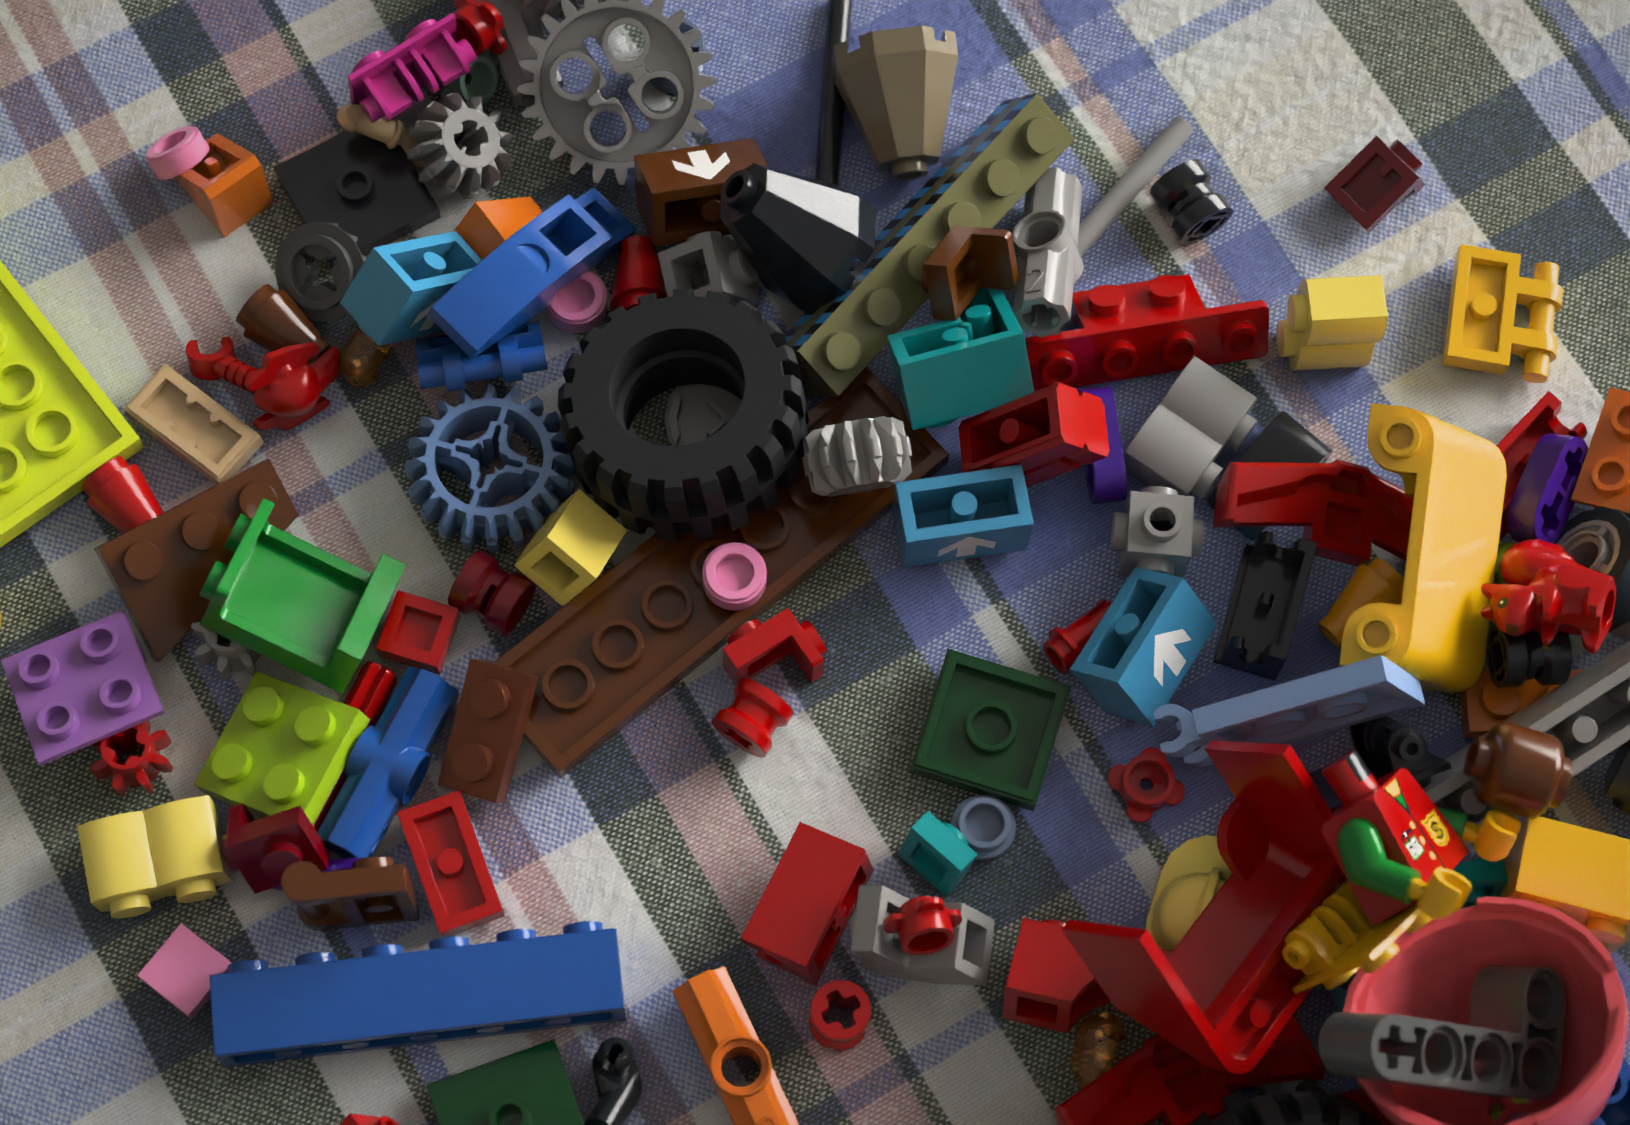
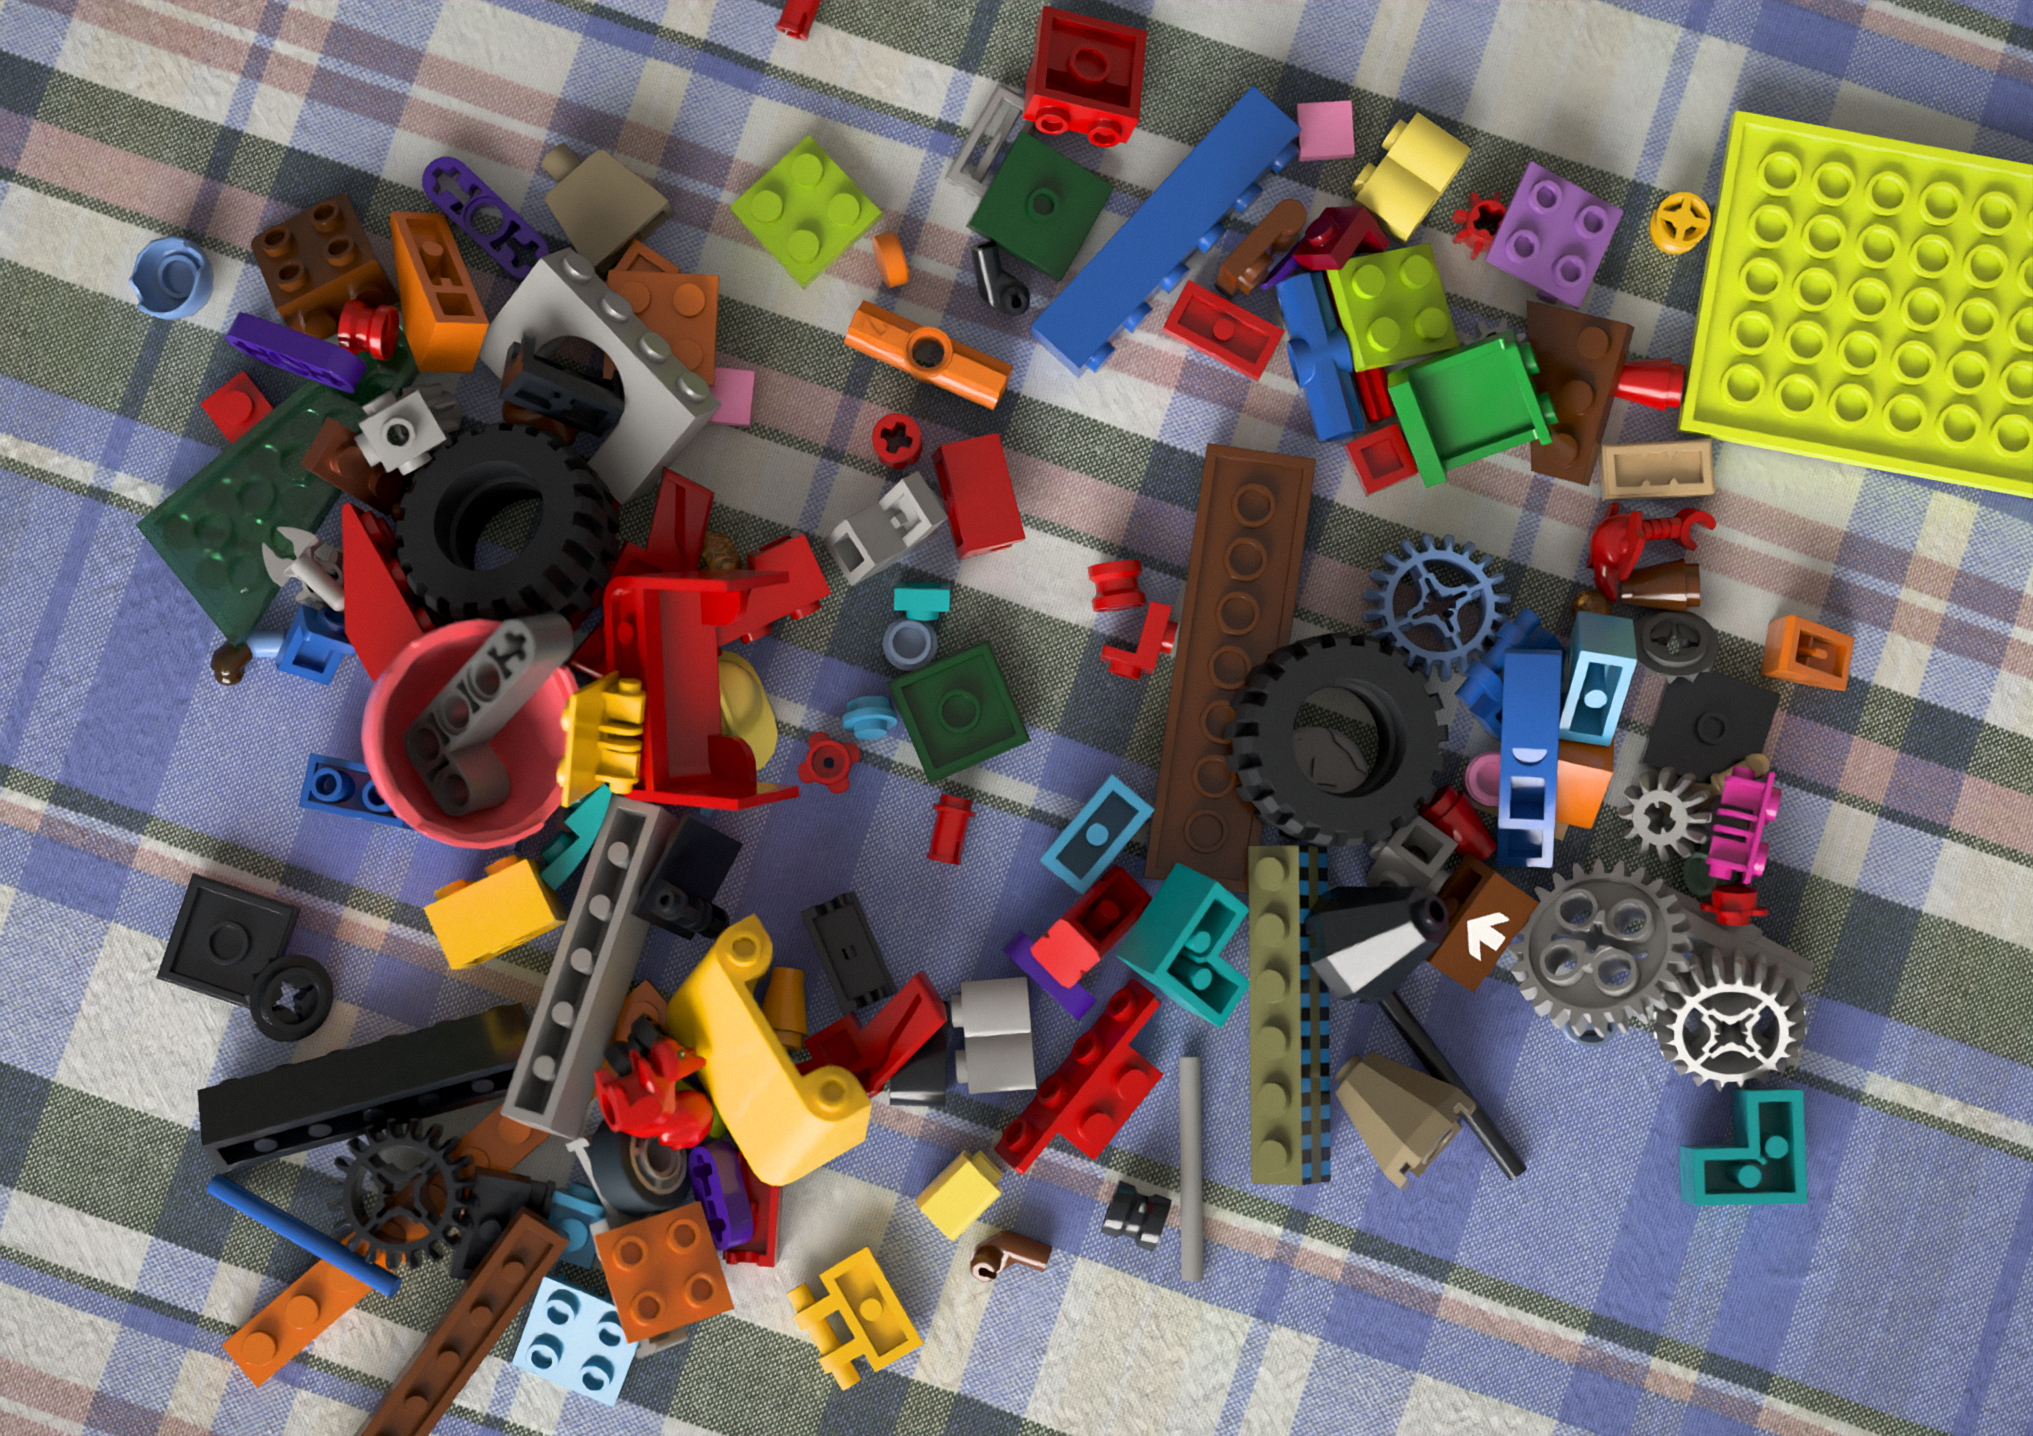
camera: 145 degrees right, 15 degrees up
(176, 152) = (1853, 646): bright pink tile -> none
(488, 730) = (1276, 430): copper plate -> none
(492, 593) = (1357, 524): dark red wheel -> none
(571, 548) = (1330, 591): light yellow brick -> none
(734, 576) = (1209, 665): bright pink tile -> none
(857, 456) = (1194, 805): light grey gear -> none
(923, 925) = (885, 524): red plate -> none
(965, 263) = (1241, 999): reddish brown bracket -> none
(1048, 253) = (1183, 1059): light grey piece -> none
(1077, 789) = (869, 717): none -> dark azure plate
(1144, 645) = (902, 847): dark azure brick -> none
(1156, 532) = (979, 927): light grey brick -> none
(1294, 708) = (769, 864): light blue tile -> none
(1320, 264) = (1005, 1250): none -> reddish brown arm
(1376, 181) = (1020, 1348): dark red bracket -> none
(1403, 846) = (621, 816): torso -> none
(1518, 770) = (582, 935): reddish brown head -> none

